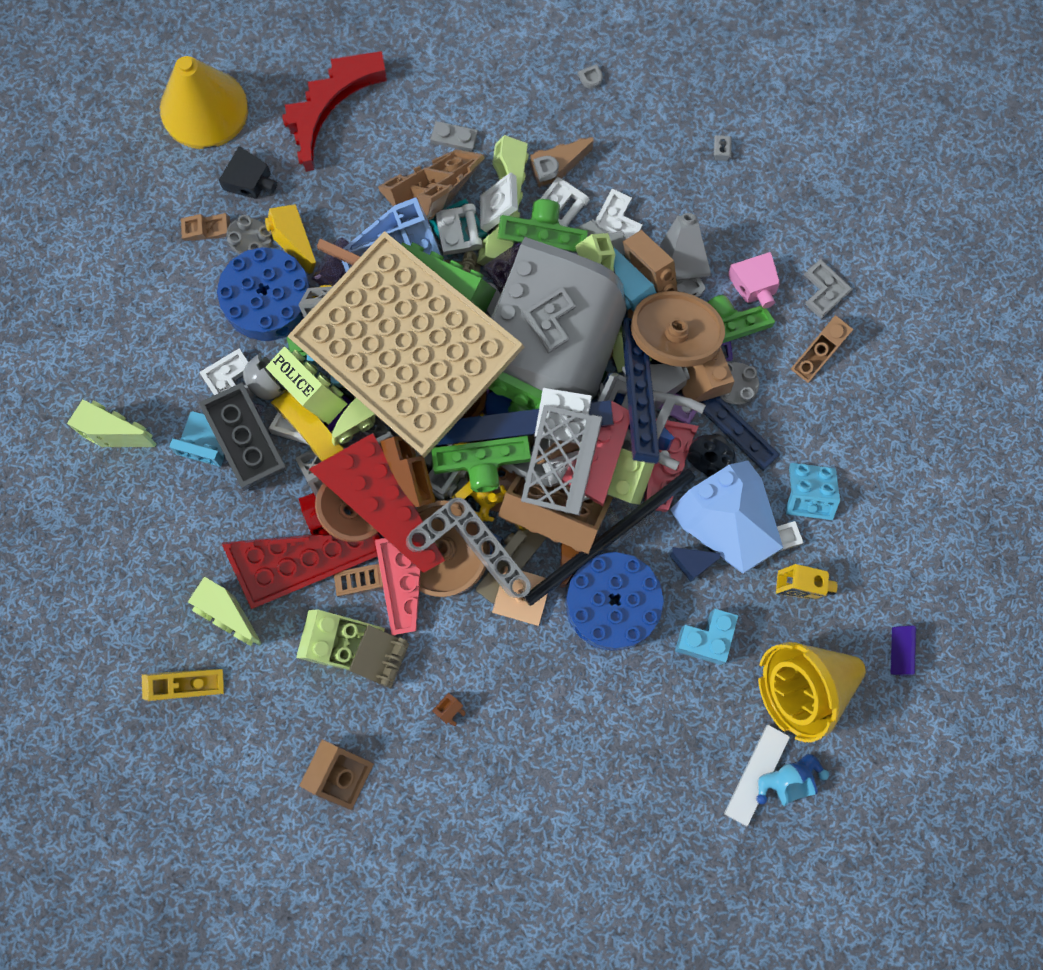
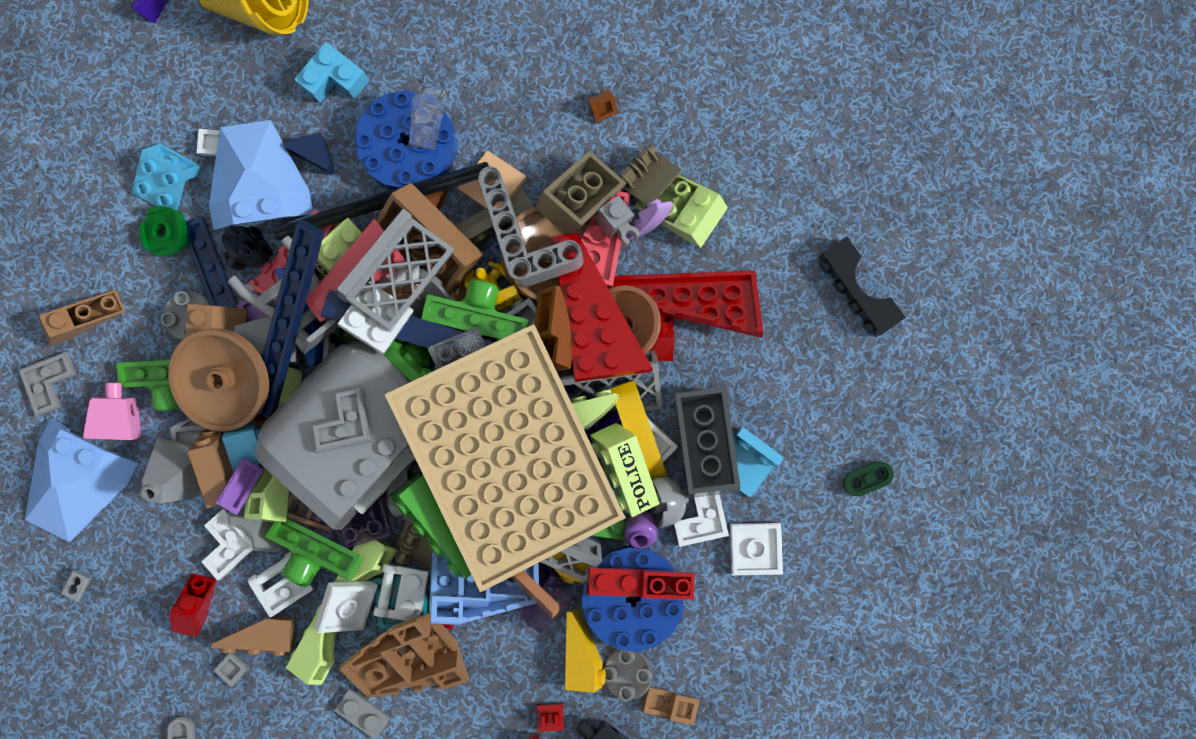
camera: 155 degrees left, 10 degrees up
(89, 463) = (867, 478): none -> dark green plate
(108, 429) = (848, 511): yellowish green slope -> none
(170, 647) = (841, 263): none -> black arch
(172, 371) = (756, 549): none -> white plate
(182, 684) = (858, 224): yellow slope -> none
(217, 603) = (781, 274): yellowish green slope -> none
(258, 300) = (640, 583): none -> red slope
(273, 343) = (640, 530): none -> medium lavender head
(301, 185) = (550, 717): none -> red tile
(336, 775) = (727, 86): medium nougat slope -> none
(368, 608) = (651, 217): none -> lavender slope
(378, 585) = (645, 251): medium nougat slope -> none
(392, 599) = (616, 219): none -> light grey brick
(433, 610) = (579, 192): none -> dark tan slope
(482, 414) = (456, 347): none -> clear slope
(546, 167) = (277, 627): light grey tile -> none
(572, 131) = (231, 669): none -> light grey tile
(600, 621) = (426, 117): none -> clear slope
(622, 253) = (239, 486): none -> medium lavender tile
(623, 165) = (192, 605): none -> red slope
(765, 222) = (73, 481): none -> light blue wedge
(781, 450) = (175, 234): none -> green plate
(806, 582) = (211, 85): yellow torso -> none

